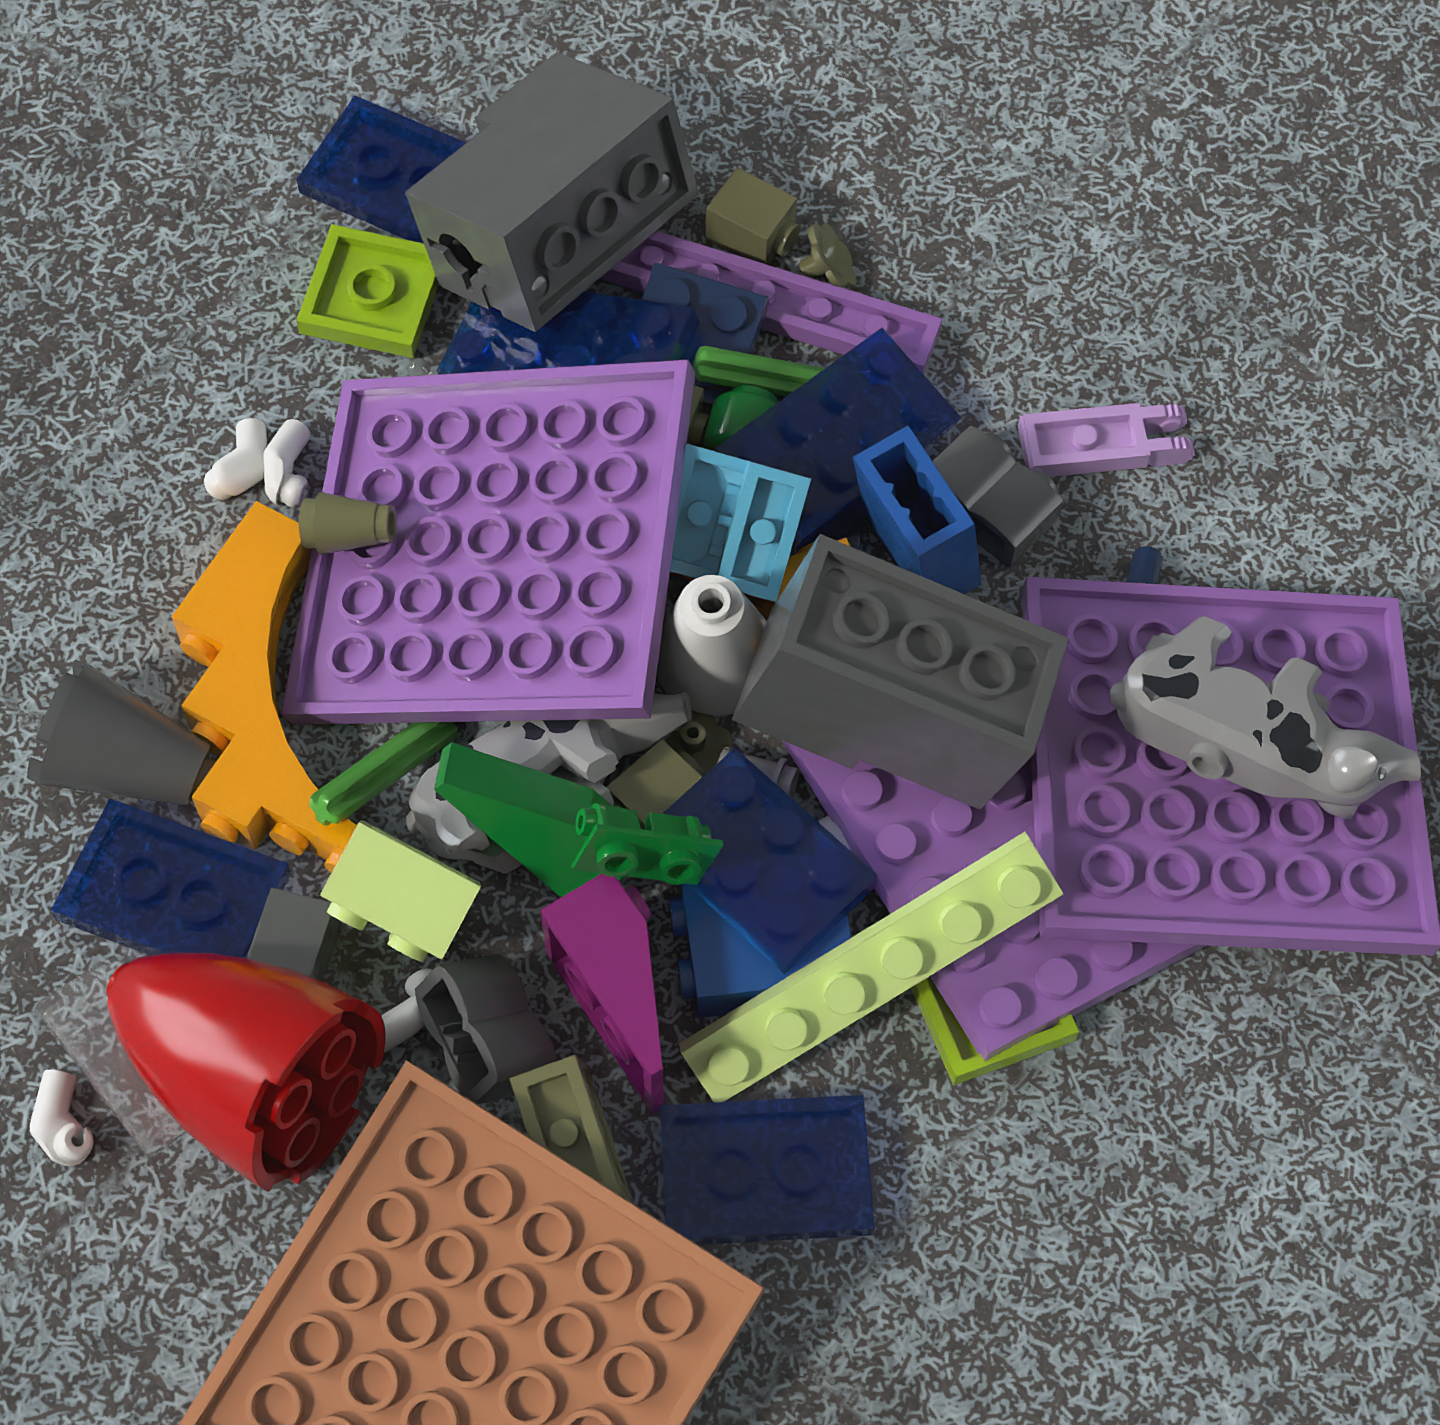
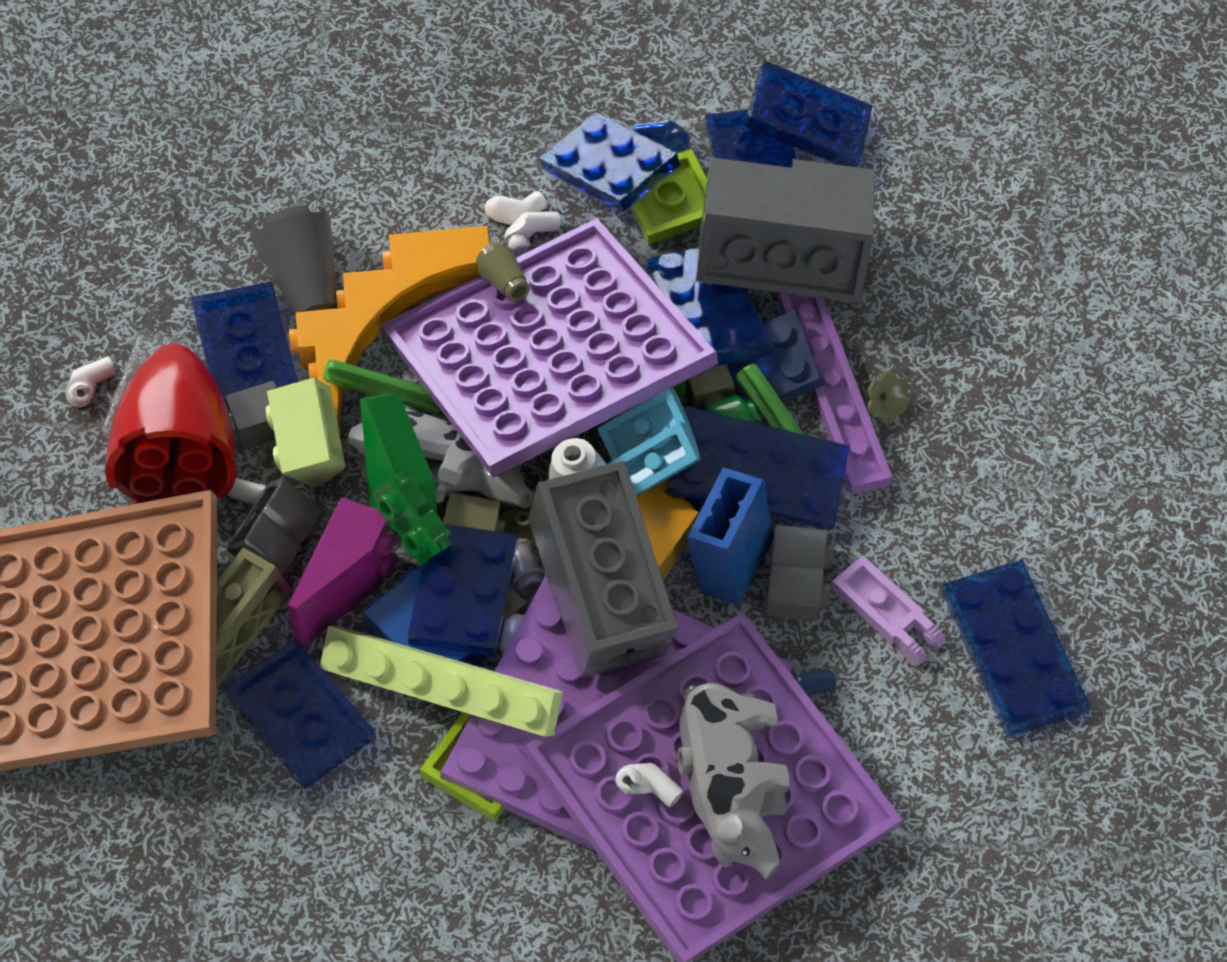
camera: 55 degrees right, 5 degrees down
(275, 316) = (610, 161): none -> clear blue plate
(277, 239) = (665, 133): none -> clear blue arm
(398, 78) = (808, 115): none -> clear blue plate
(752, 218) = (875, 342): olive brick -> none
(1189, 820) = (648, 779): none -> white arm
(1240, 352) = (1015, 648): none -> clear blue plate

